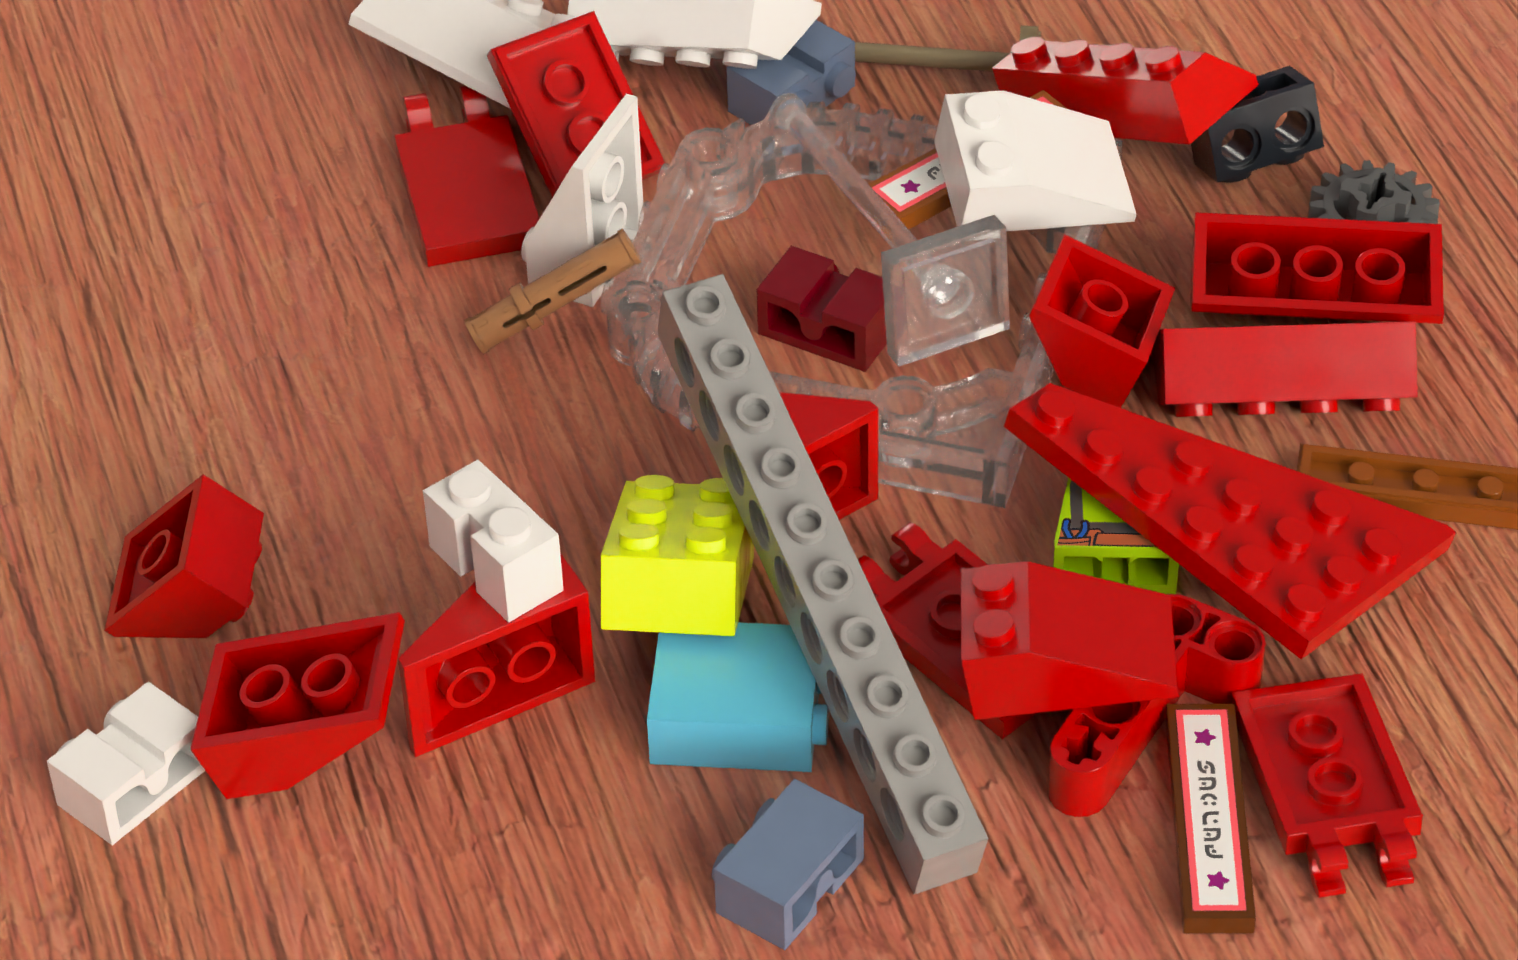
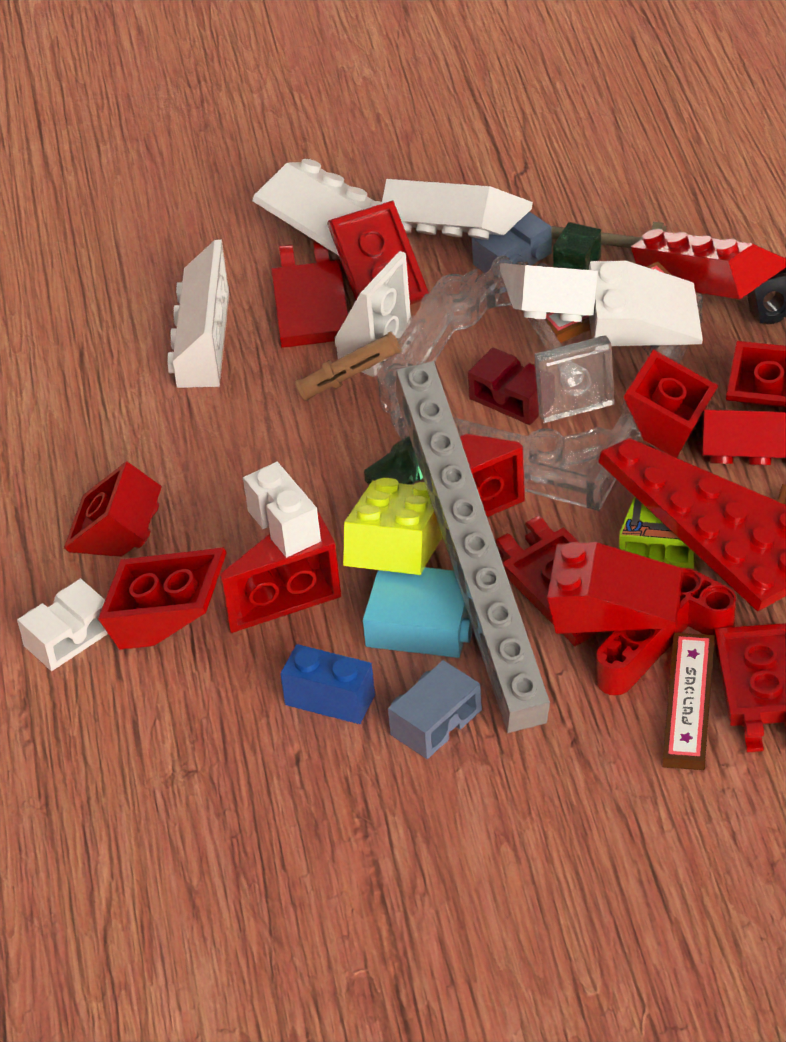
camera: 10 degrees right, 0 degrees up
(287, 228) = (200, 320): none -> white slope
(601, 833) = (328, 683): none -> blue brick
(664, 447) = (398, 464): none -> clear green tile
(883, 146) = (550, 290): none -> white slope
(900, 76) = (577, 247): none -> clear green brick

